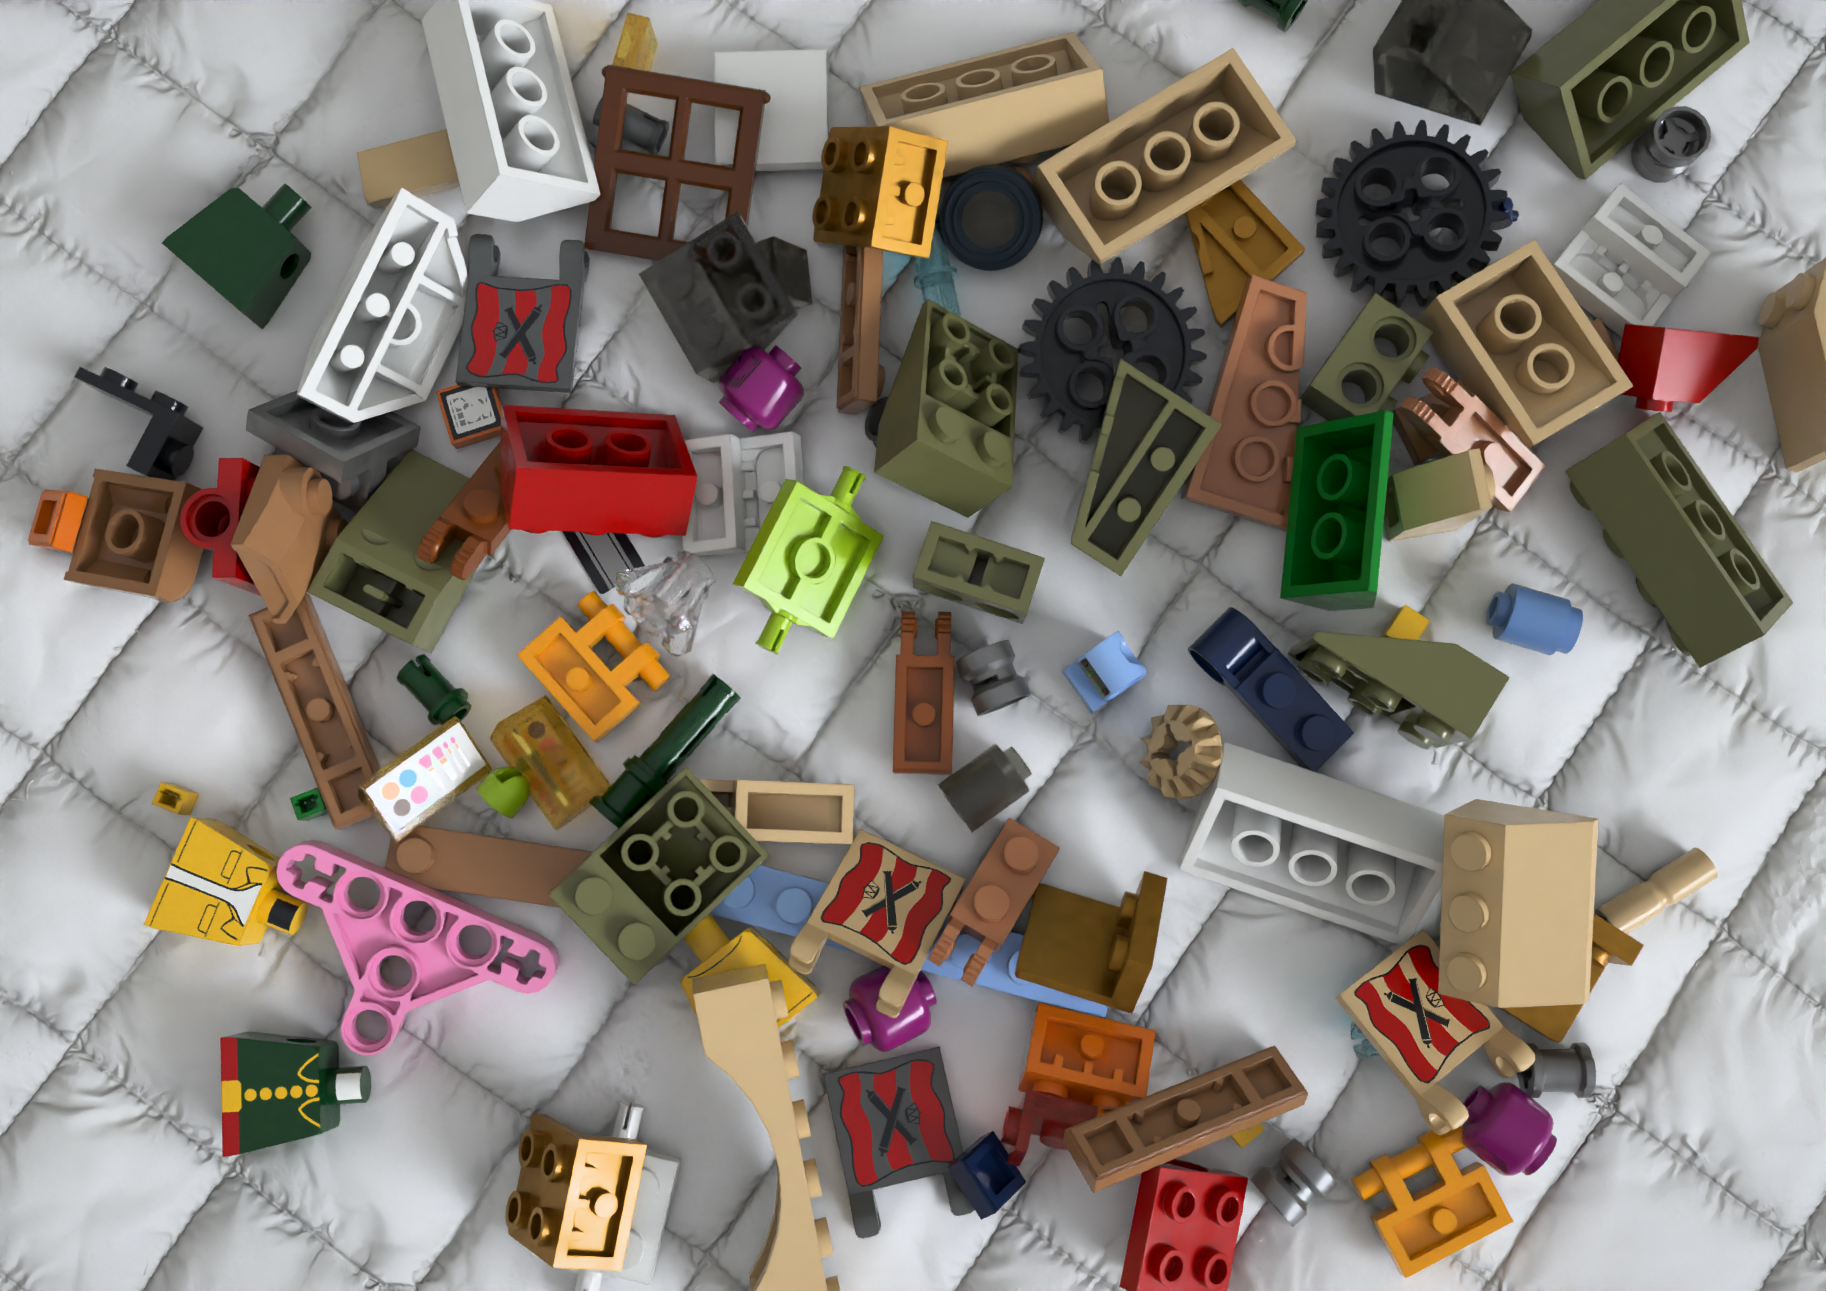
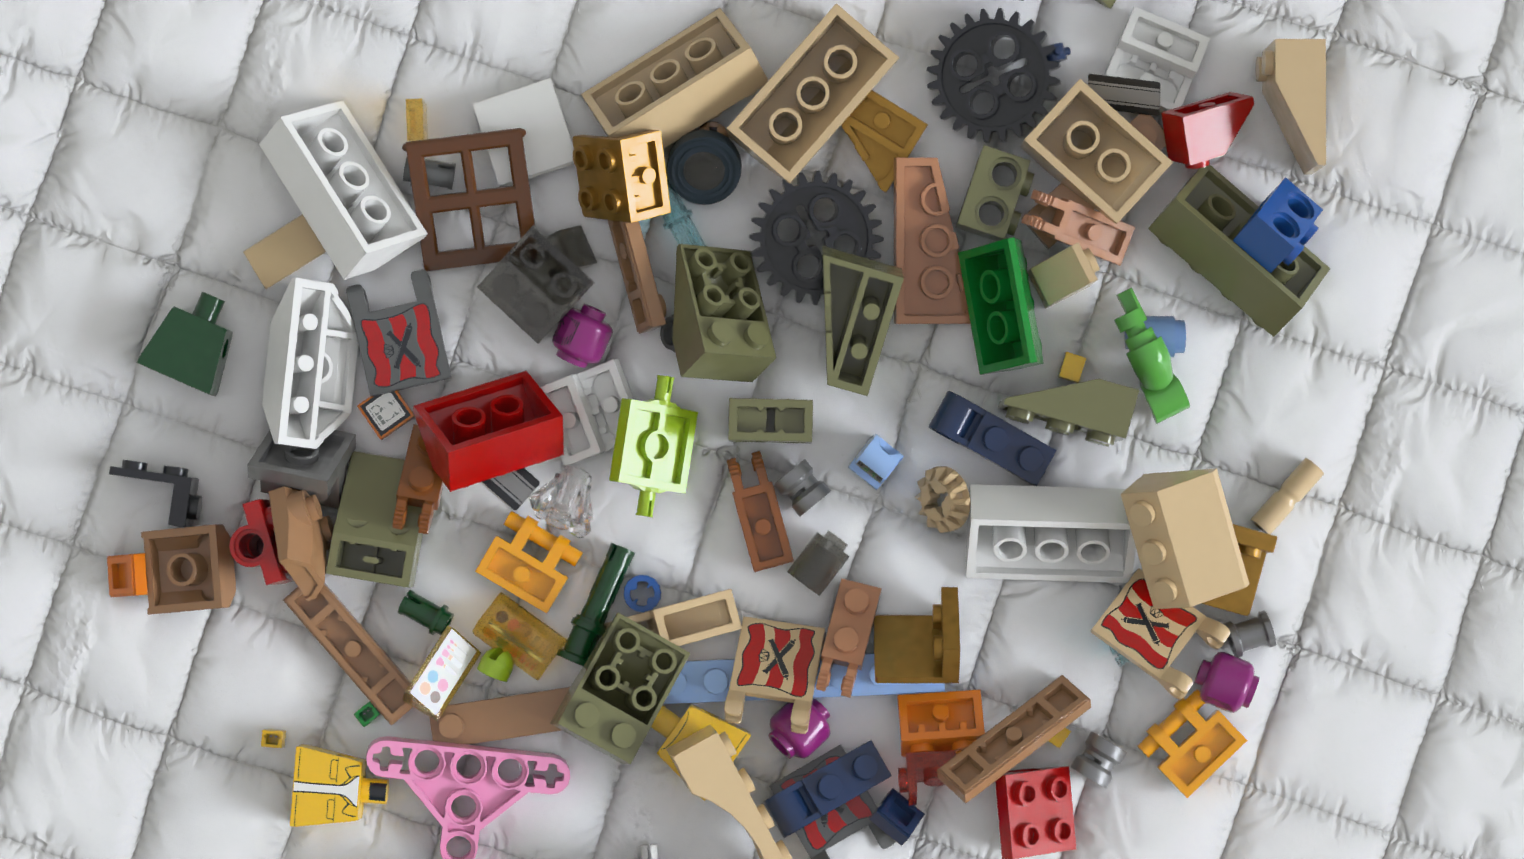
camera: 20 degrees left, 5 degrees up
(724, 739) = (632, 584): none -> blue bush
(901, 1105) = (827, 789): none -> dark blue plate
(1526, 645) = (1150, 361): none -> bright green piece
(1598, 291) = (1127, 93): none -> sticker
(1752, 519) = (1279, 226): none -> blue brick

